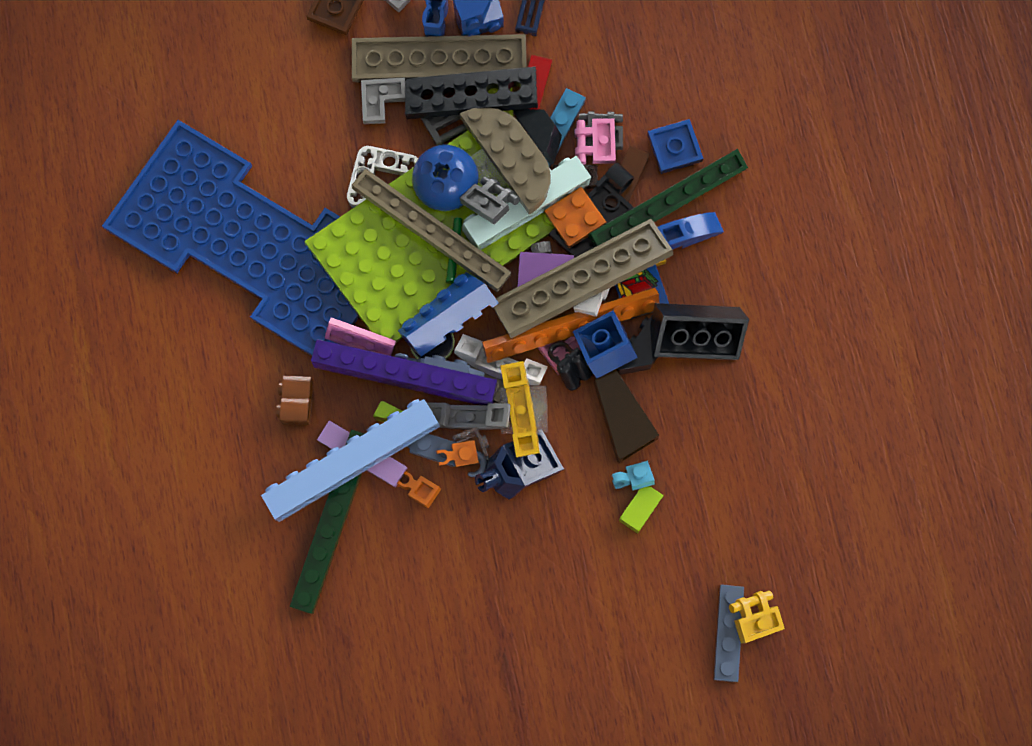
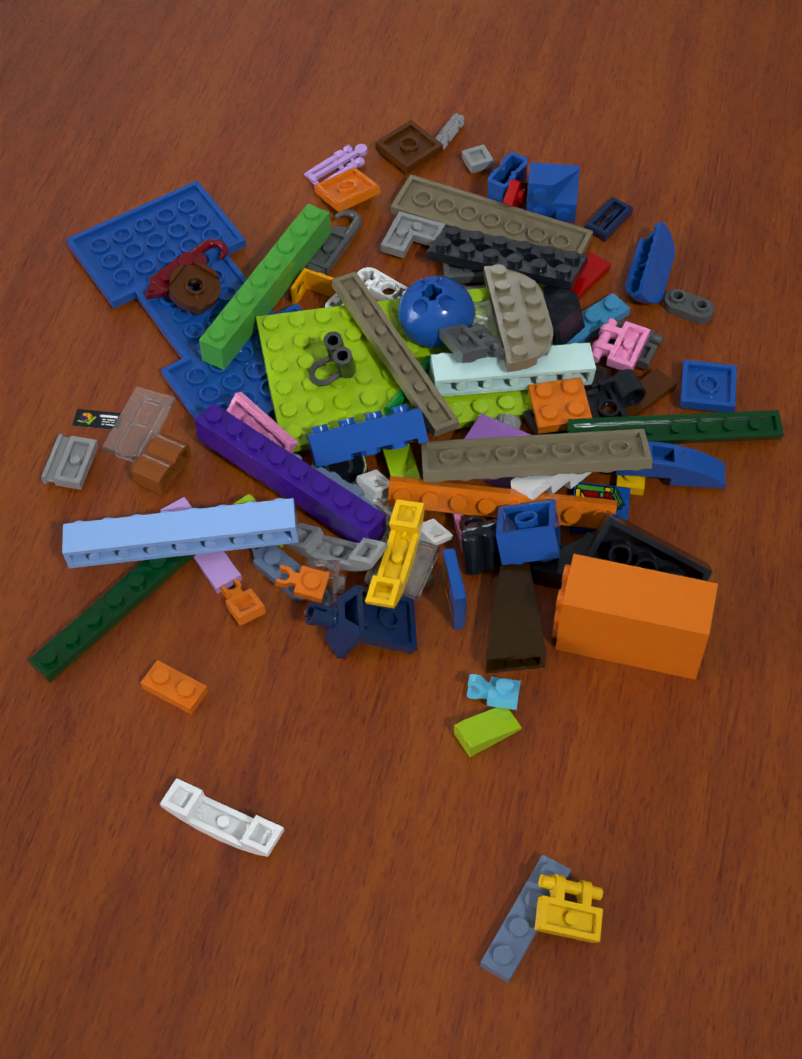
camera: 25 degrees right, 20 degrees down
(217, 216) = (160, 281): none -> dark red plate
(222, 380) = (95, 419): none -> black sticker
(224, 429) = (70, 461): none -> light grey plate
(249, 225) = (192, 300): none -> reddish brown plate
(258, 371) = (138, 423): none -> clear piece
(295, 206) = (265, 286): none -> bright green brick
(297, 28) = (337, 161): none -> lavender piece
(306, 74) = (347, 189): none -> orange tile
(322, 136) = (335, 244): none -> dark grey plate
(328, 178) = (313, 281): none -> light orange bracket
(401, 262) = (336, 353): none -> black piece
(405, 577) = (174, 687): none -> orange plate
(450, 25) = (516, 193): none -> red plate
(484, 327) = (401, 462): none -> lime slope
(494, 662) = (220, 821): none -> white slope
(570, 412) = (454, 588): none -> blue tile
(585, 50) = (651, 266): none -> blue brick
(628, 76) = (688, 306): none -> dark grey plate
(710, 381) = (634, 616): none -> orange container

